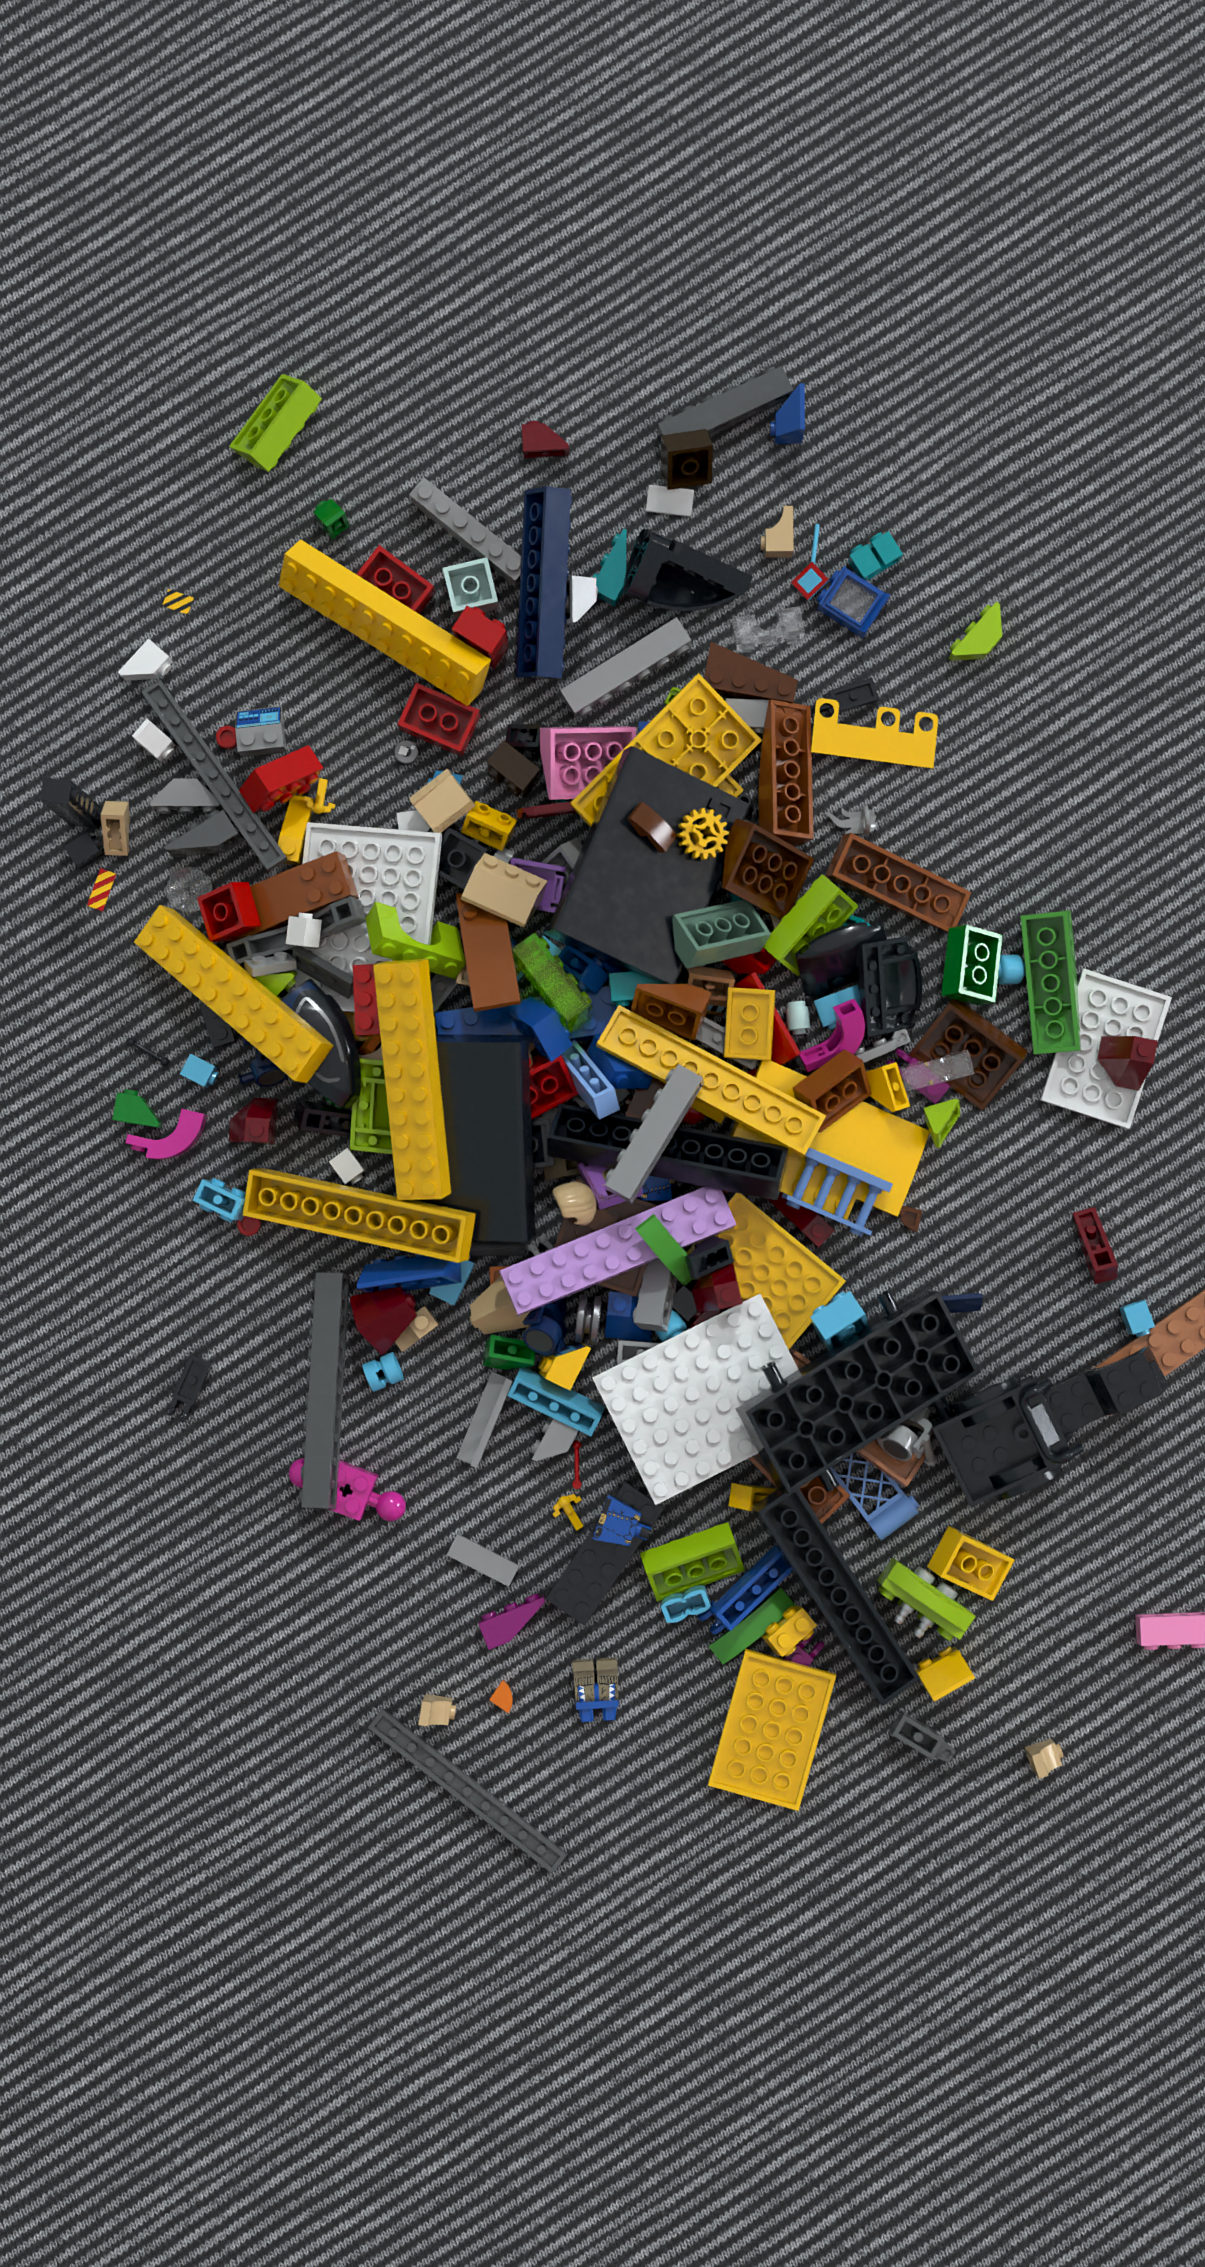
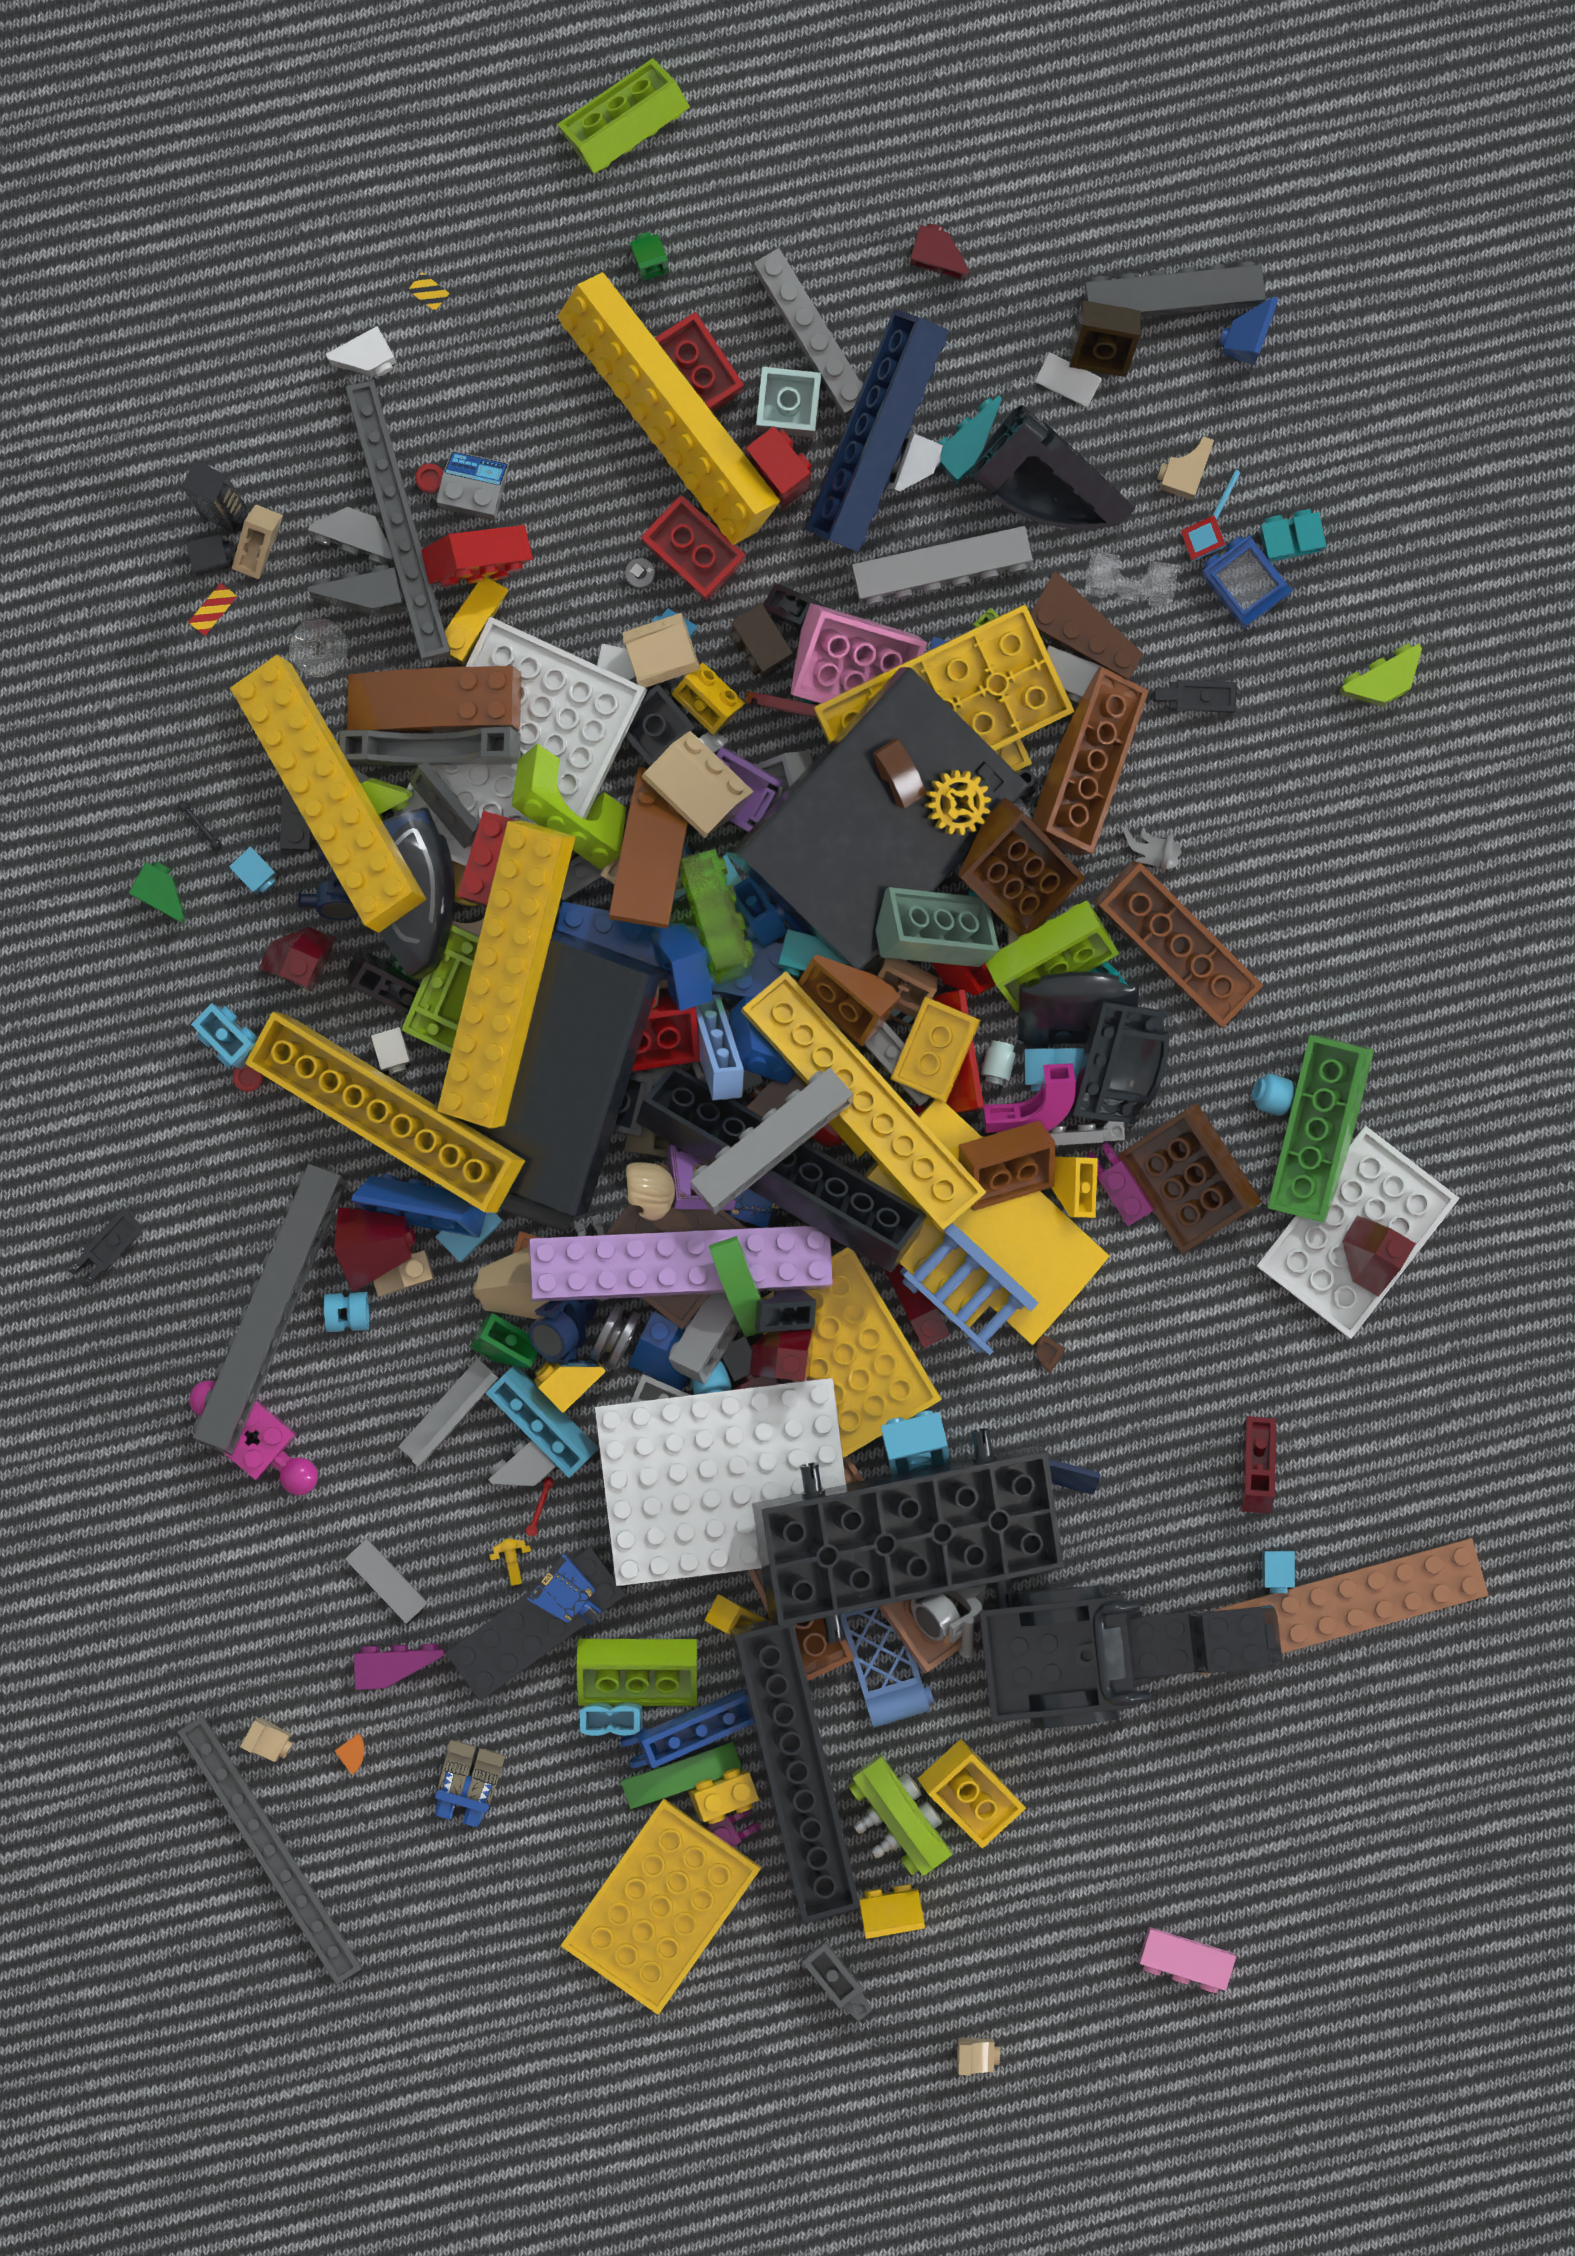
camera: 15 degrees right, 0 degrees up
(154, 741) = (340, 453): white slope -> none
(183, 1138) = (202, 947): dark pink arch -> none
(229, 911) = (357, 692): red brick -> none
(268, 965) = (385, 774): light grey plate -> none
(303, 930) = (439, 748): white brick -> none
(318, 807) = (509, 601): yellow piece -> none
(369, 1045) = (469, 913): orange tile -> none
(877, 744) = (1212, 764): yellow piece -> none
(937, 1071) = (1141, 1186): clear arch -> none
(941, 1119) = (1128, 1246): lime slope -> none
(971, 965) = (1230, 1073): green brick -> none

